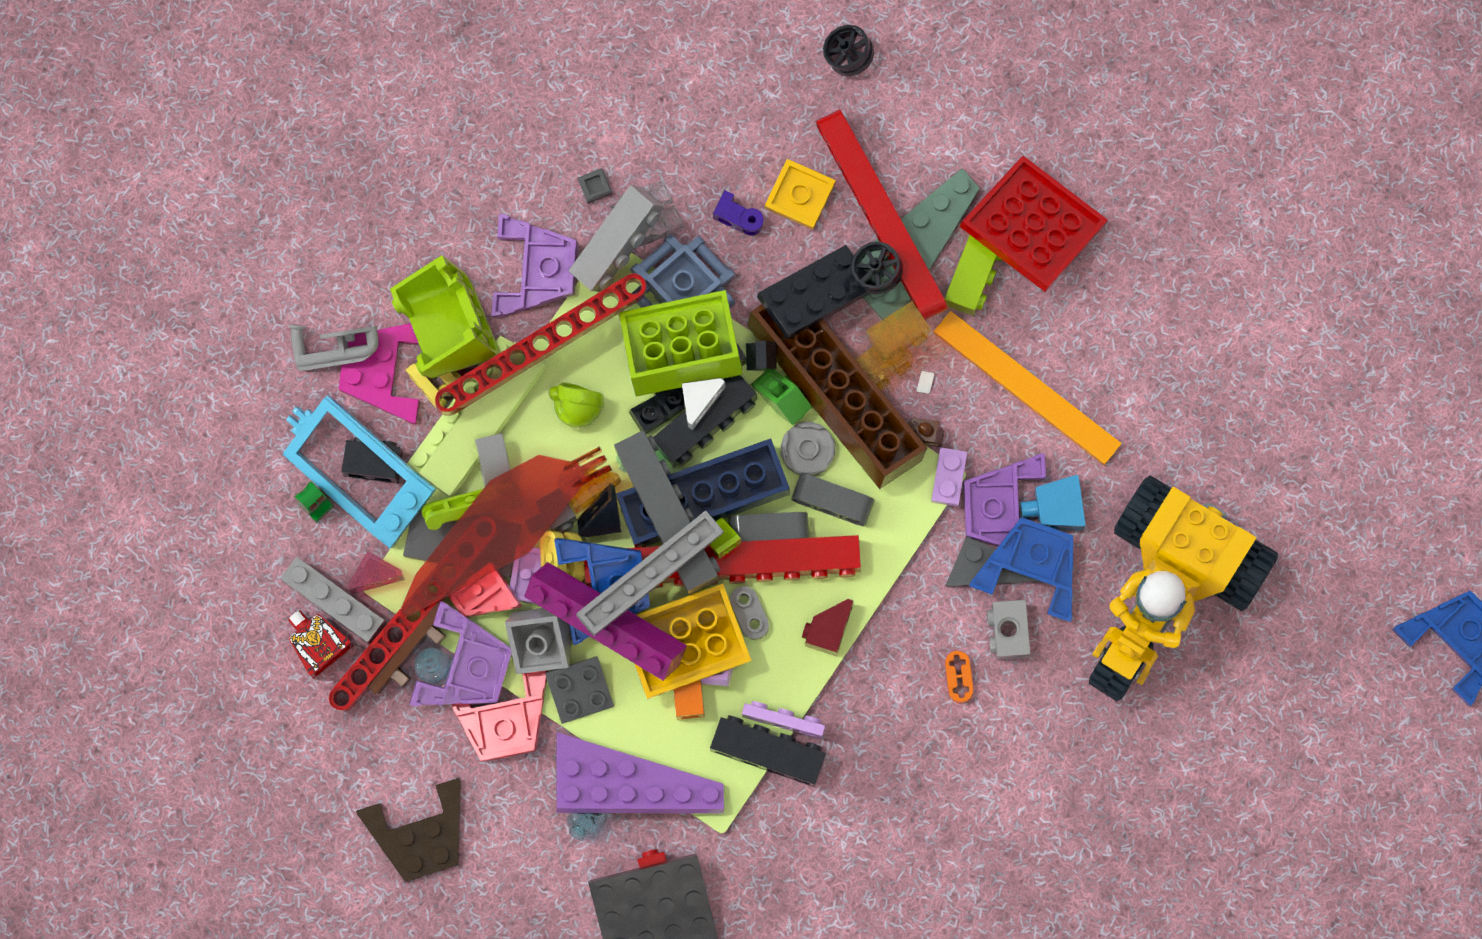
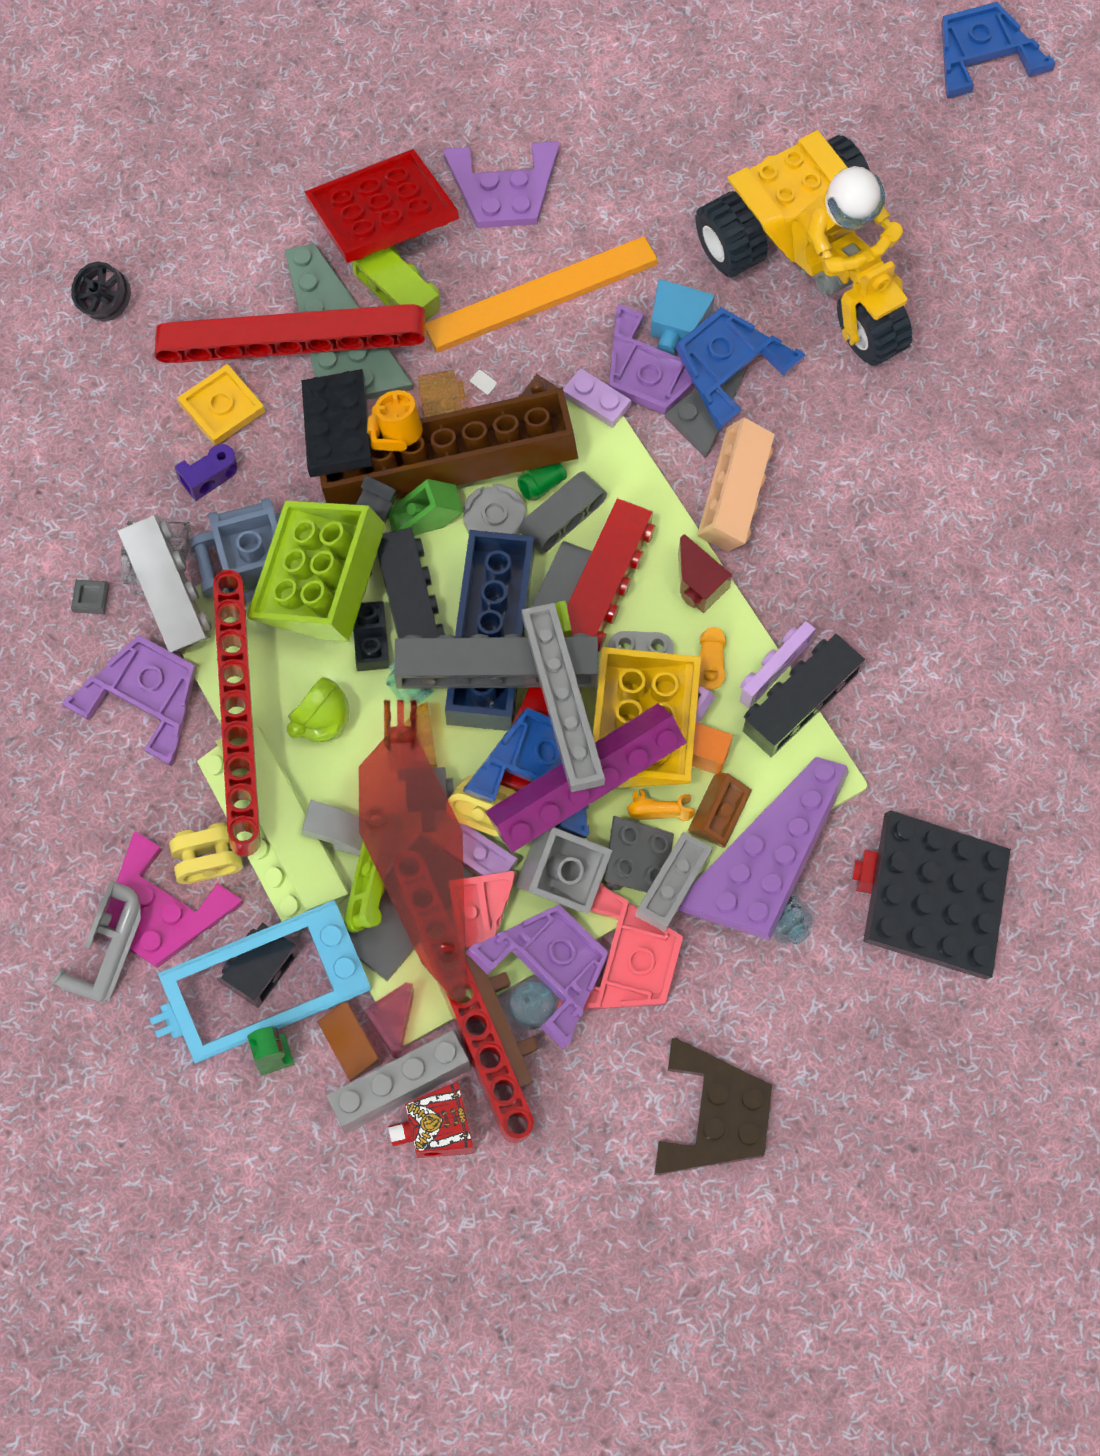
camera: 70 degrees left, 10 degrees down
(349, 552) = (348, 1041): none -> dark orange slope
(444, 318) = (144, 807): lime windscreen -> none
(571, 723) = (673, 881): none -> light grey plate
(601, 516) = (457, 741): black slope -> none
(619, 677) = (650, 809): none -> light orange piece
(648, 732) = (720, 809): none -> dark orange slope
(700, 397) = (386, 579): white slope -> none
(763, 671) = (712, 658): none -> light orange piece
(832, 337) = (397, 419): none -> light orange piece
(850, 470) = (539, 481): none -> green cone
(877, 267) = (346, 349): black wheel -> none
(898, 333) = (423, 365): clear yellow brick -> none
(925, 621) = (736, 485): none -> light nougat brick
(952, 678) = (808, 485): orange beam -> none
(1016, 615) = (776, 401): light grey brick -> none
(1105, 315) = (504, 196): none -> medium lavender wing

